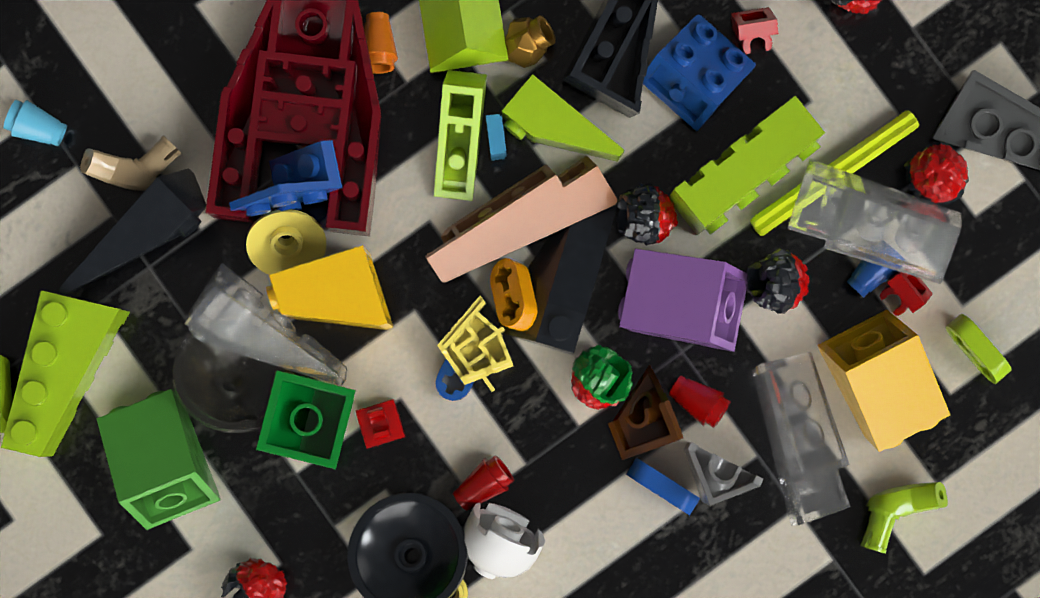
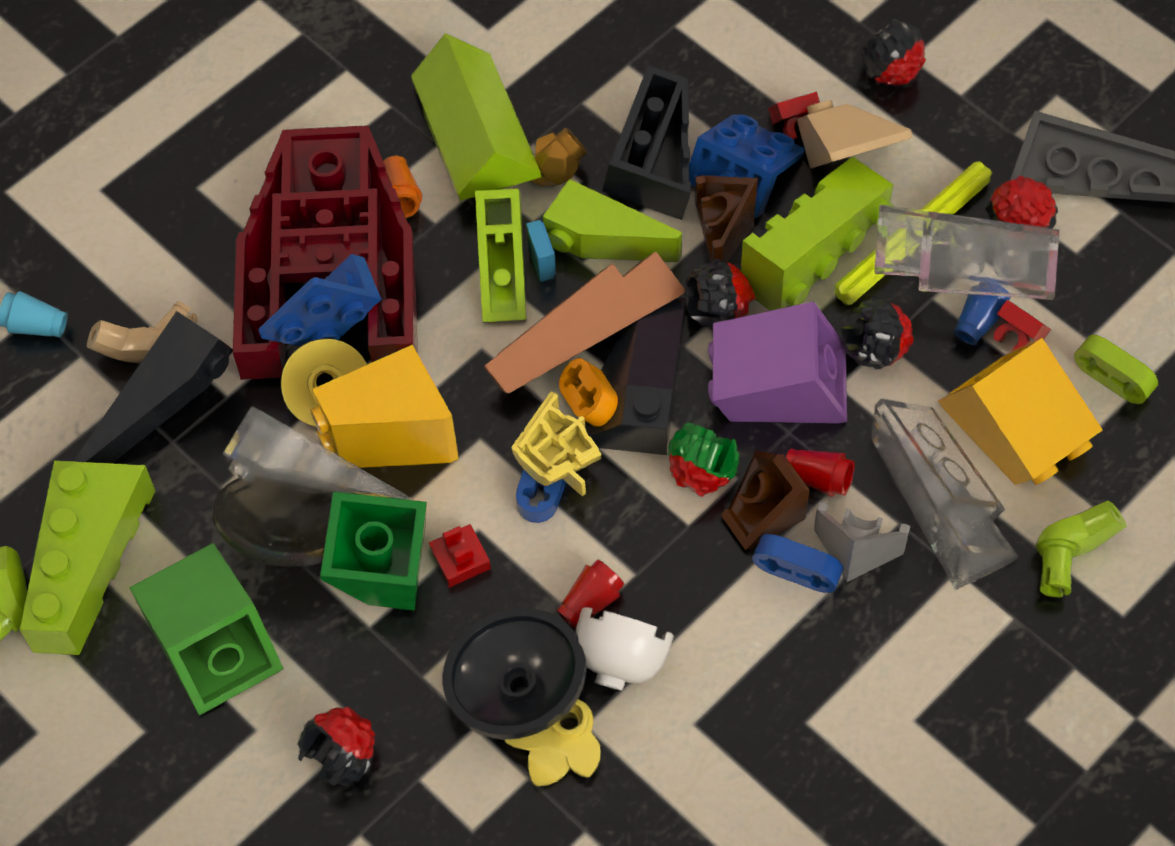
camera: 10 degrees left, 25 degrees down
(666, 132) = (725, 212): none -> reddish brown slope
(795, 73) = (845, 131): none -> tan slope

